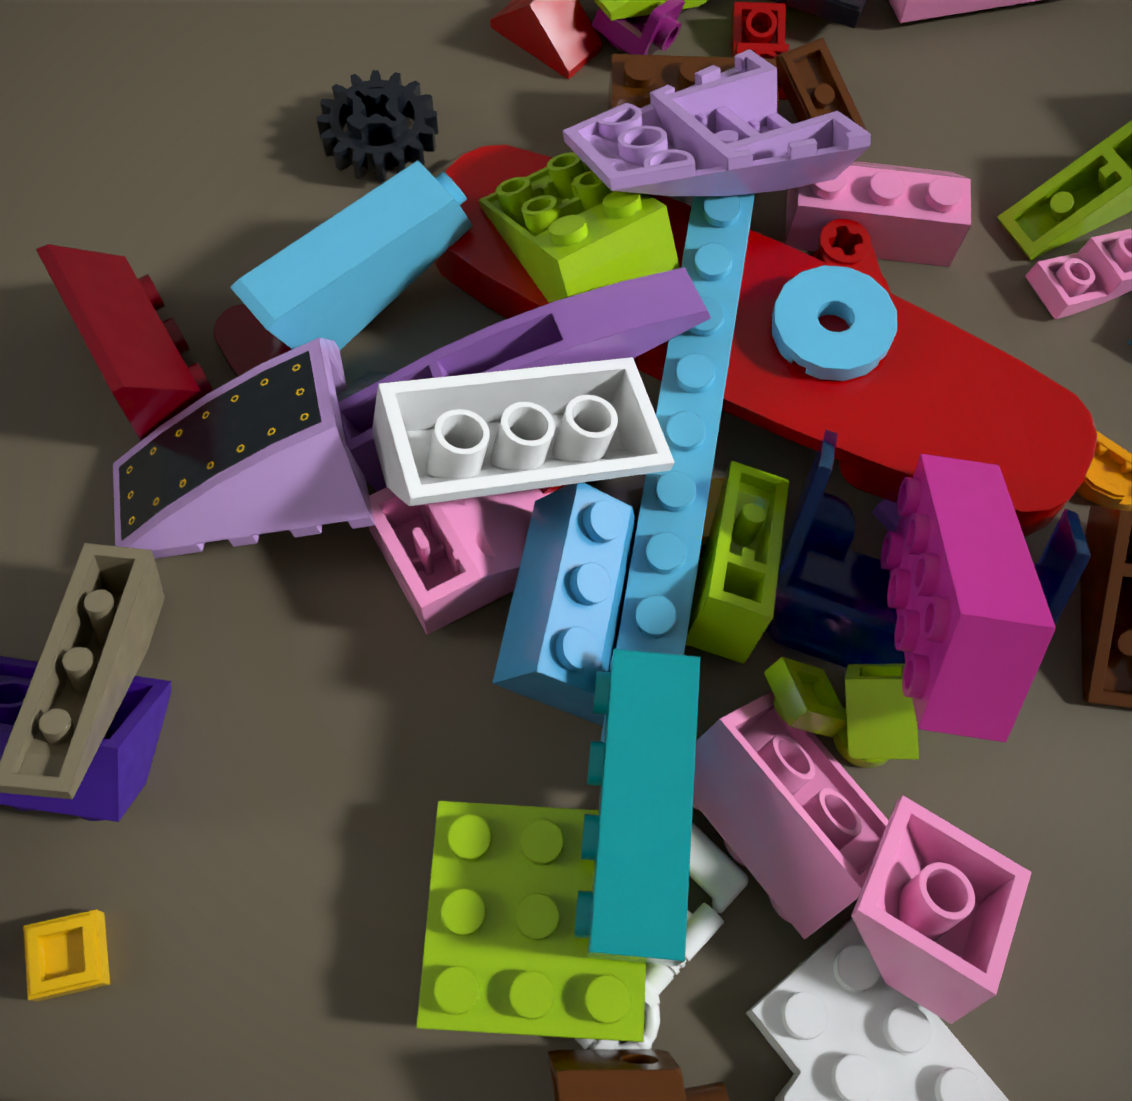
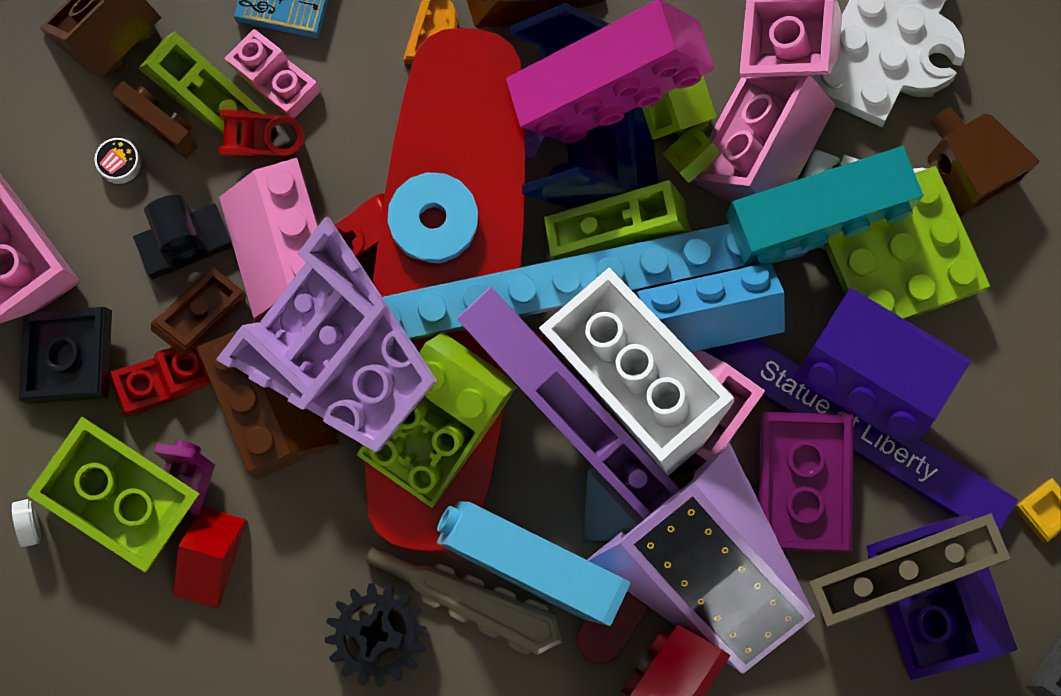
camera: 110 degrees left, 10 degrees up
(290, 638) = (807, 479): none -> magenta tile
(292, 762) = (920, 469): none -> dark purple tile
(372, 789) = (882, 369): none -> dark purple slope
(919, 104) = (179, 235): none -> black tile
(1018, 213) = (256, 134): none -> red piece
(1031, 97) = (118, 160): none -> tile
(1069, 135) = (143, 108): none -> reddish brown plate

